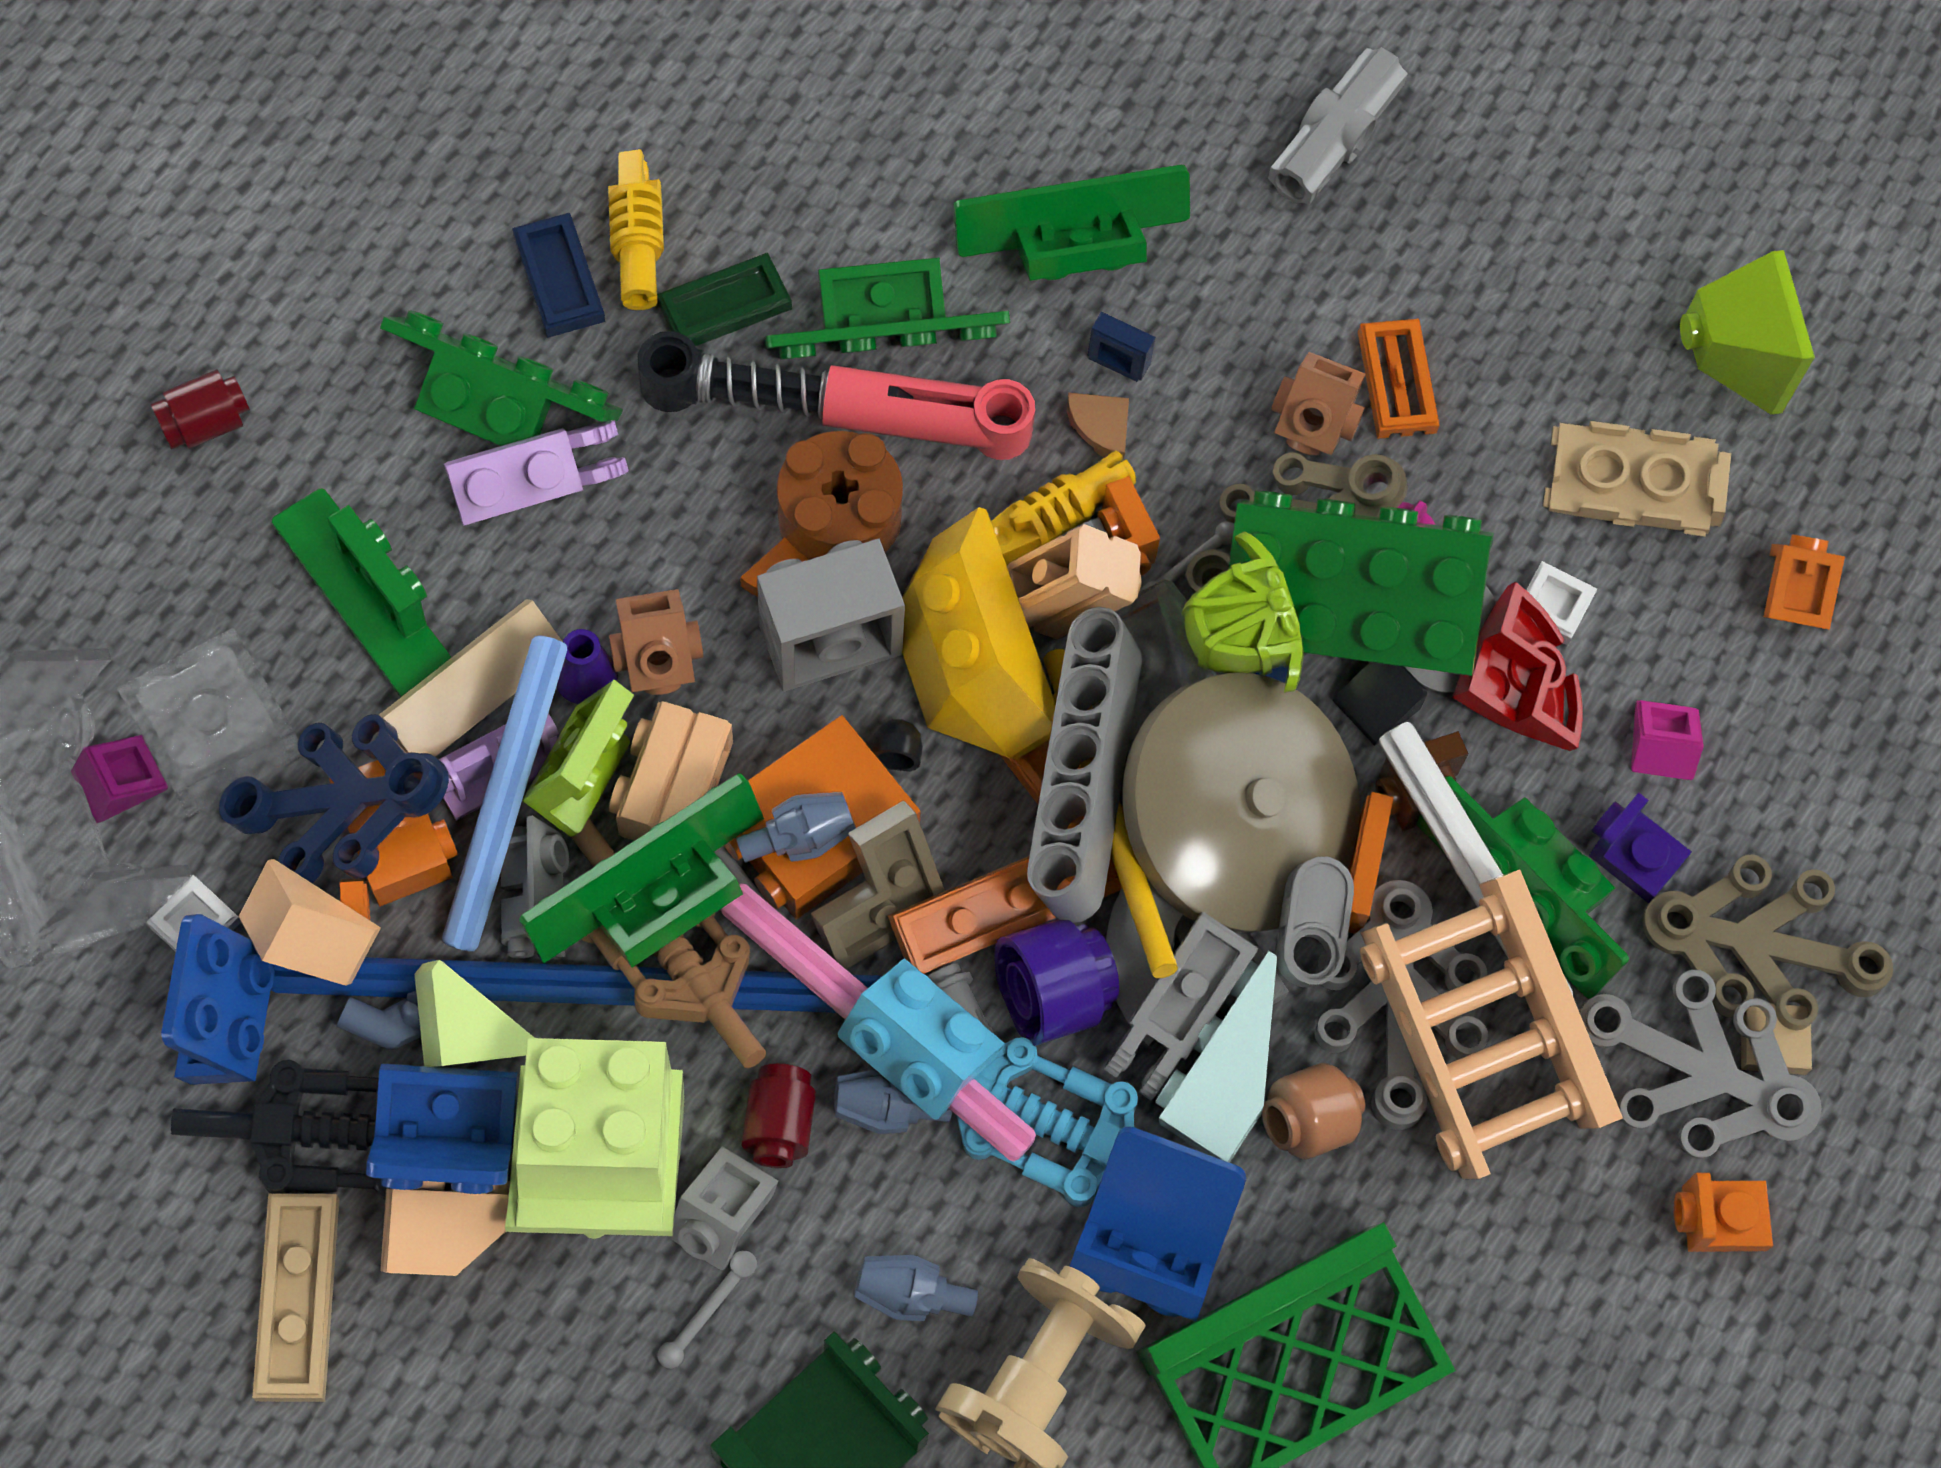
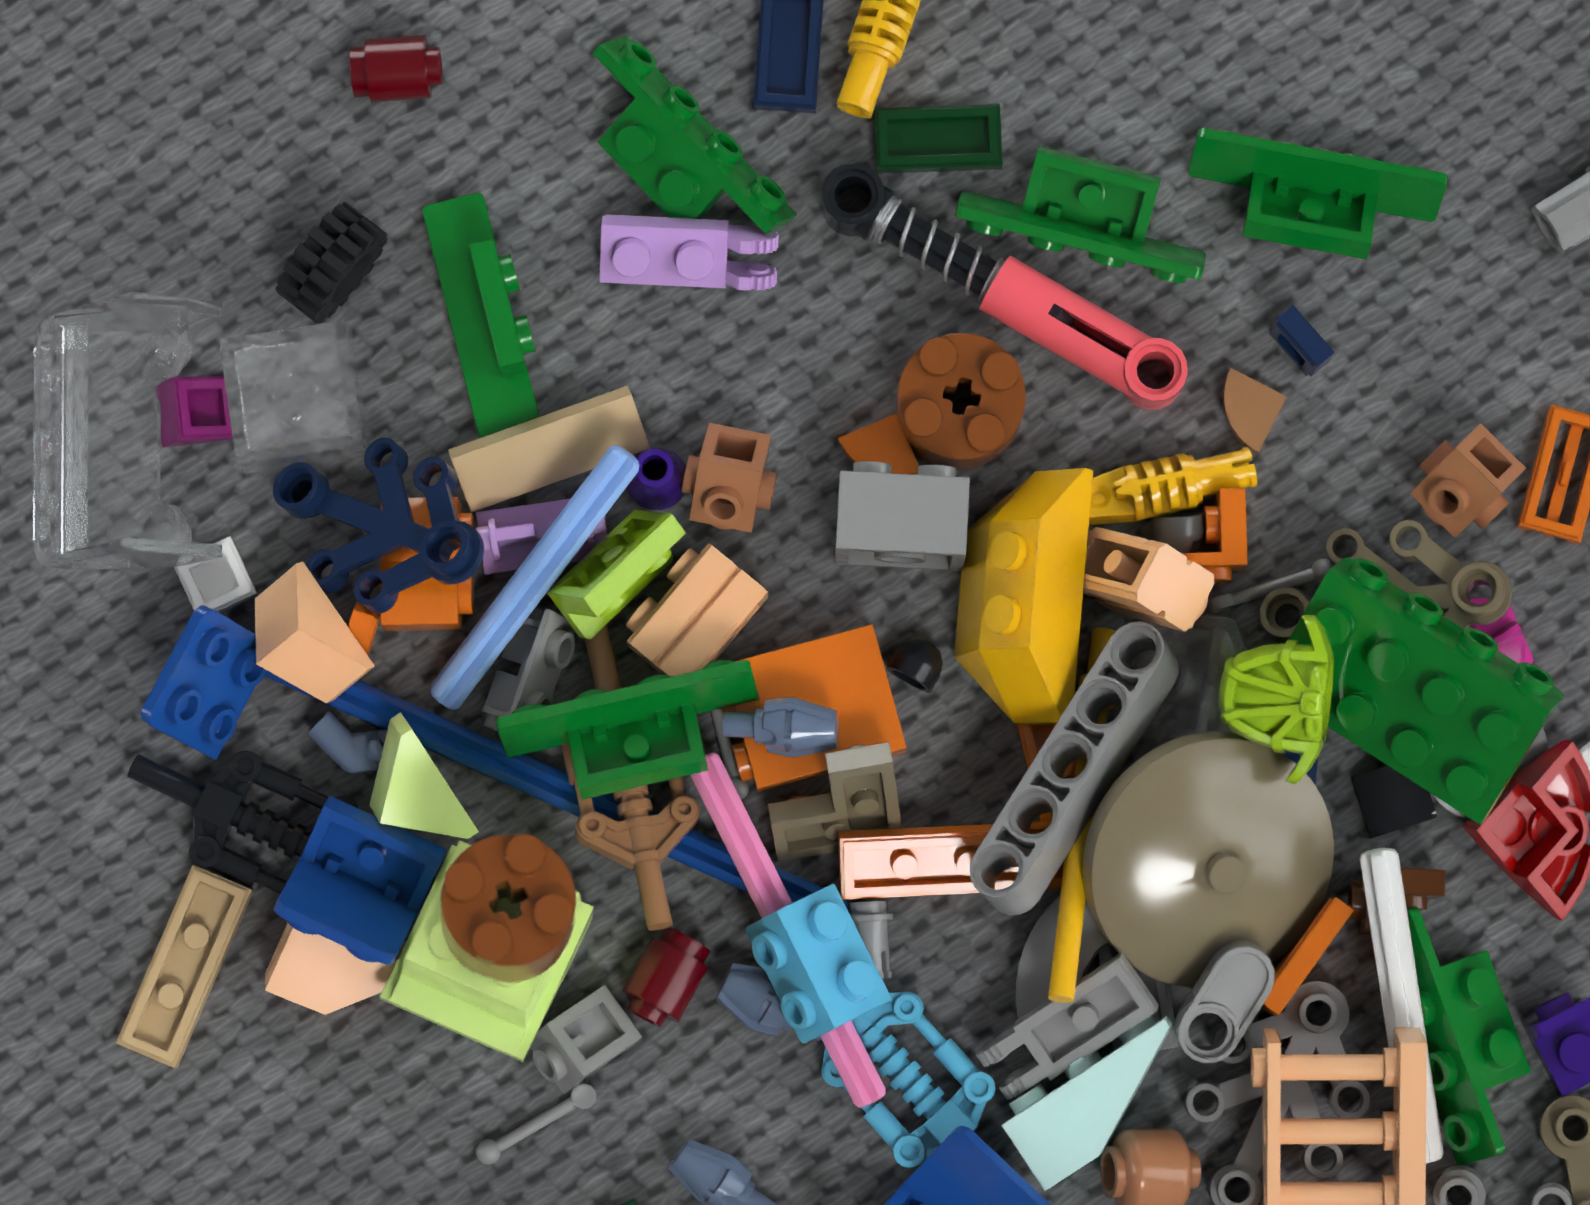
camera: 30 degrees right, 15 degrees up
(200, 586) = (331, 262): none -> black tyre
(601, 1065) = (524, 873): none -> dark orange brick
(1055, 979) = (967, 955): dark purple piece -> none

